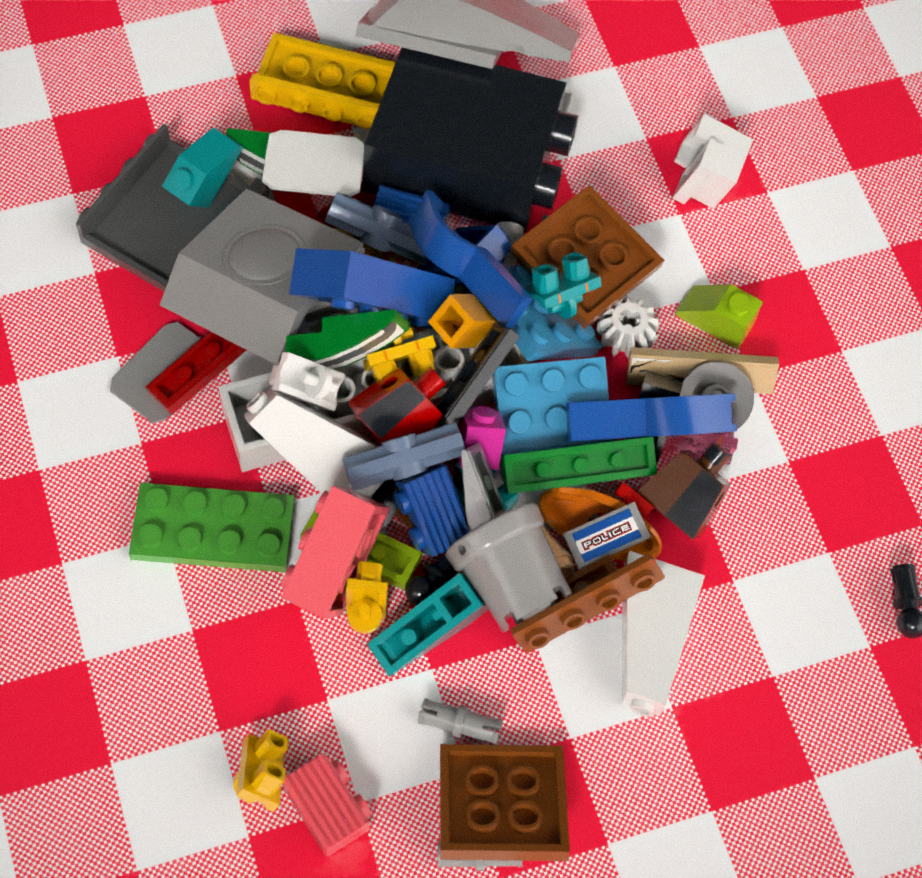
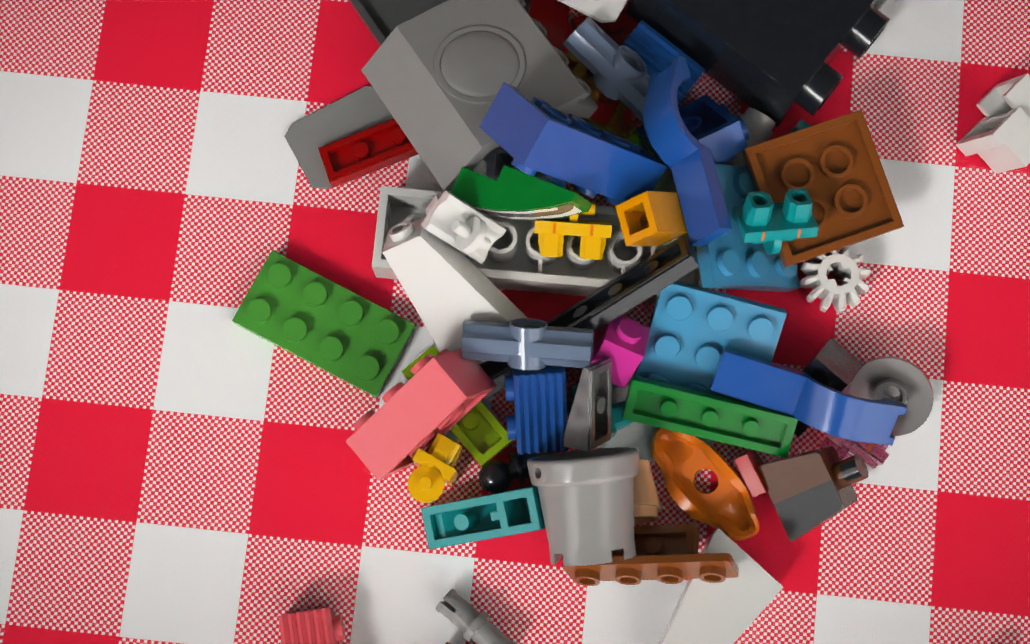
camera: 30 degrees right, 15 degrees up
(262, 769) = (263, 598): yellow hips -> none
(399, 405) = (547, 285): red torso -> none
(607, 535) = (703, 502): tile -> none
(678, 364) = (865, 343): tan tile -> none
(721, 311) = (942, 298): lime slope -> none

